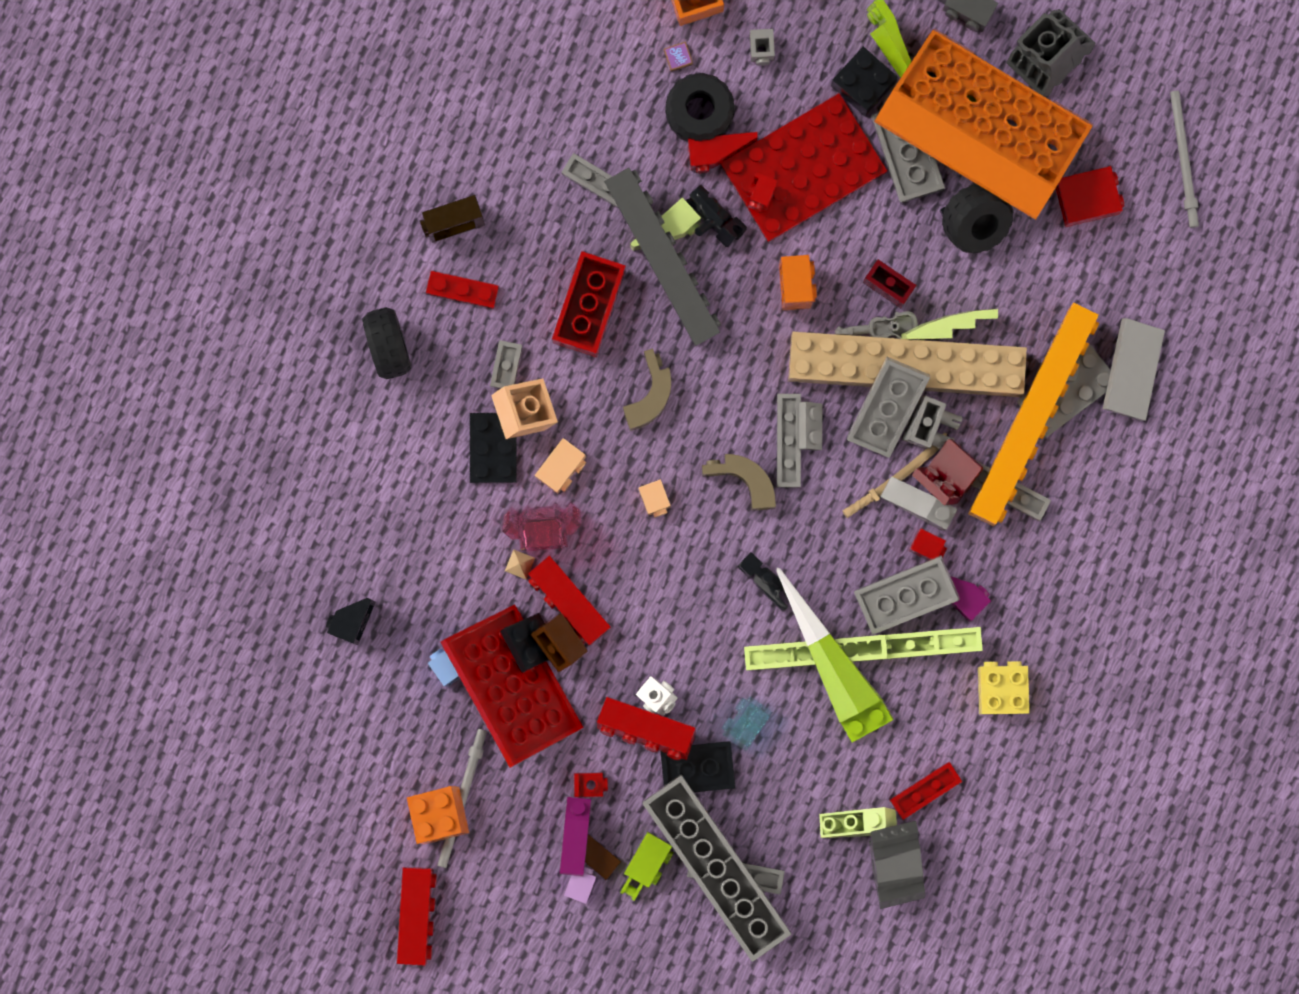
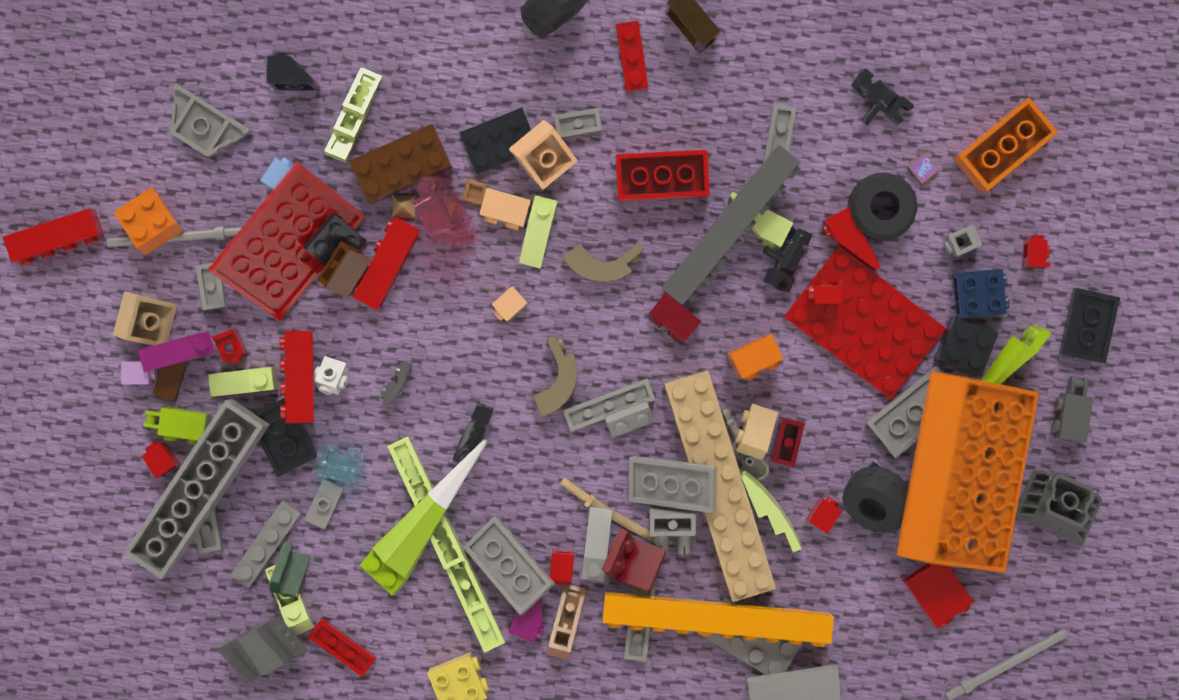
camera: 65 degrees right, 5 degrees up
(363, 727) = (202, 124): none -> light grey wing
(412, 578) = (353, 115): none -> yellowish green slope
(479, 549) = (400, 164): none -> reddish brown brick
(524, 781) = (211, 288): none -> light grey plate
(530, 858) = (144, 319): none -> tan slope
(533, 490) = (474, 192): none -> medium nougat tile
(595, 70) = (881, 98): none -> black piece
(595, 443) = (538, 231): none -> yellowish green slope
(628, 787) = (243, 381): none -> yellowish green slope
(672, 896) = (160, 459): none -> red brick
(693, 642) = (392, 390): none -> dark grey slope
(729, 345) = (674, 318): none -> dark red brick
(778, 754) = (324, 503): none -> light grey plate
(796, 826) = (266, 543): none -> light grey plate
(818, 48) = (980, 293): none -> dark blue brick
(832, 811) = (288, 571): none -> panel
(868, 308) = (756, 431): none -> tan brick
(973, 275) = (824, 514): none -> red brick
(984, 563) = (566, 622): none -> medium nougat slope

